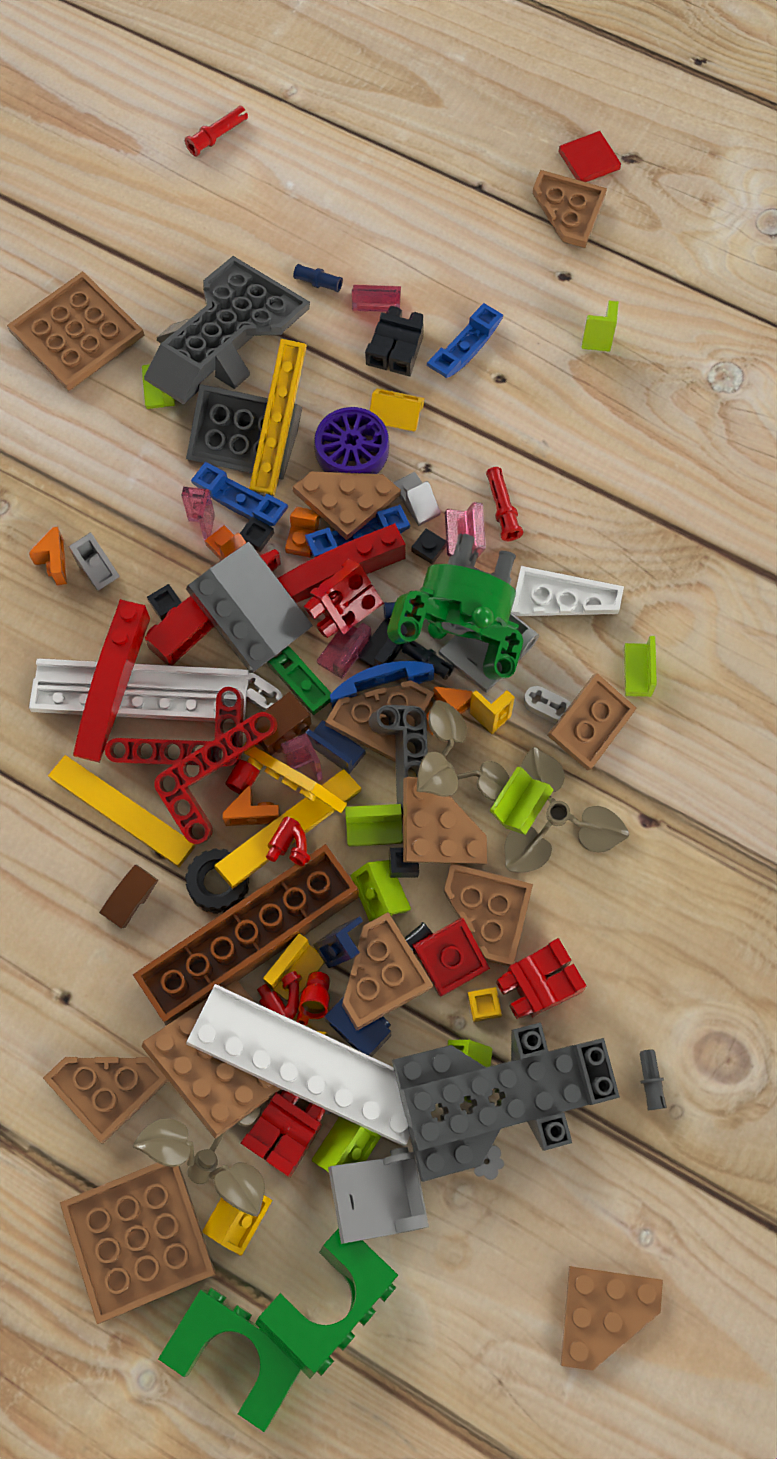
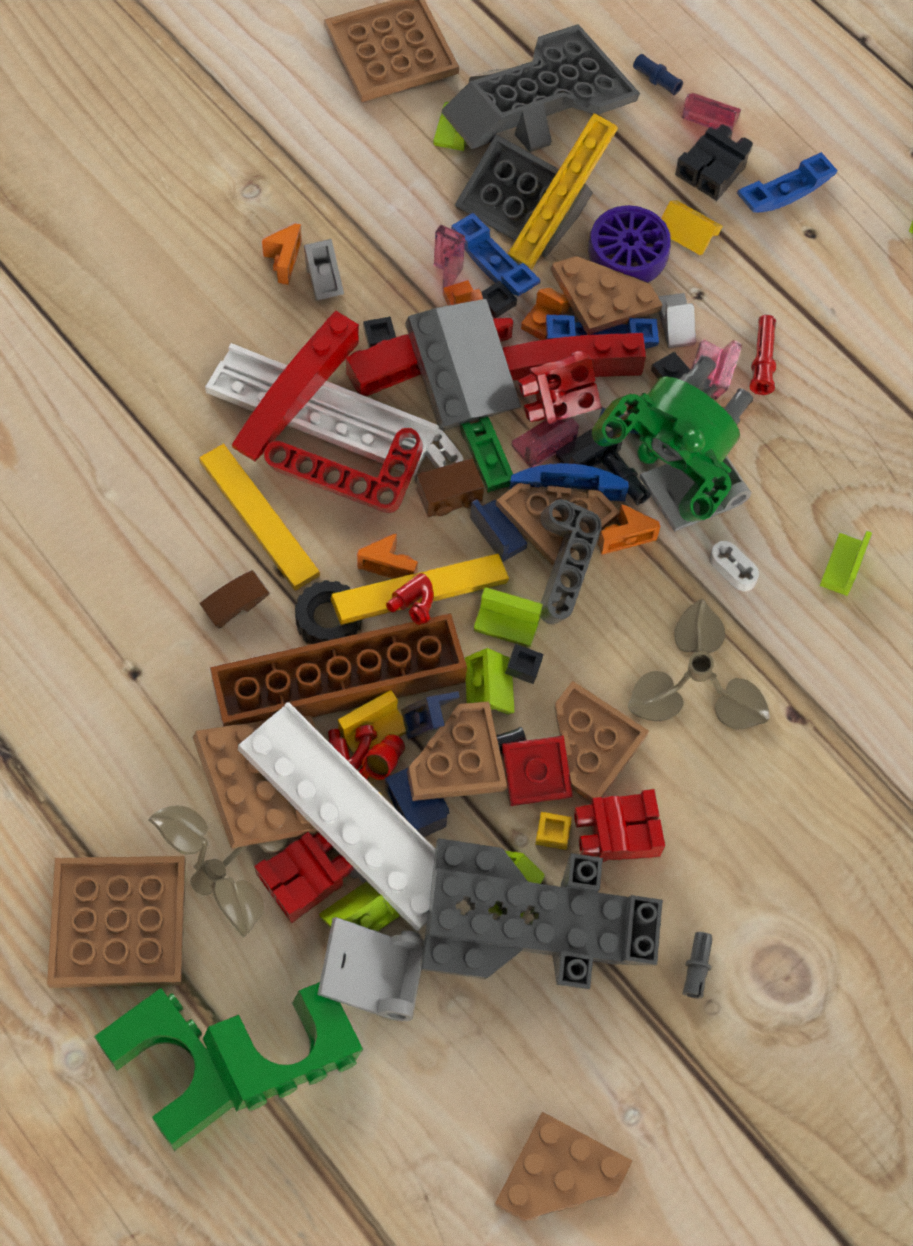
camera: 15 degrees right, 5 degrees down
(105, 1089) = (141, 771): medium nougat plate -> none
(206, 767) = (360, 500): red beam -> none
(233, 1227) = (220, 944): yellow panel -> none
(242, 776) = (392, 523): red beam -> none
(293, 778) = (442, 539): yellow wing -> none
(299, 753) = (459, 522): clear pink panel -> none
(438, 775) = (592, 587): dark tan plant -> none
(439, 830) = (572, 640): medium nougat plate -> none
(491, 715) = (670, 550): yellow panel -> none
(495, 1162) = (496, 990): light grey plant -> none
(520, 801) = (667, 645): lime panel -> none
(560, 594) = (787, 461): white wing -> none
(592, 721) = (773, 595): medium nougat plate -> none

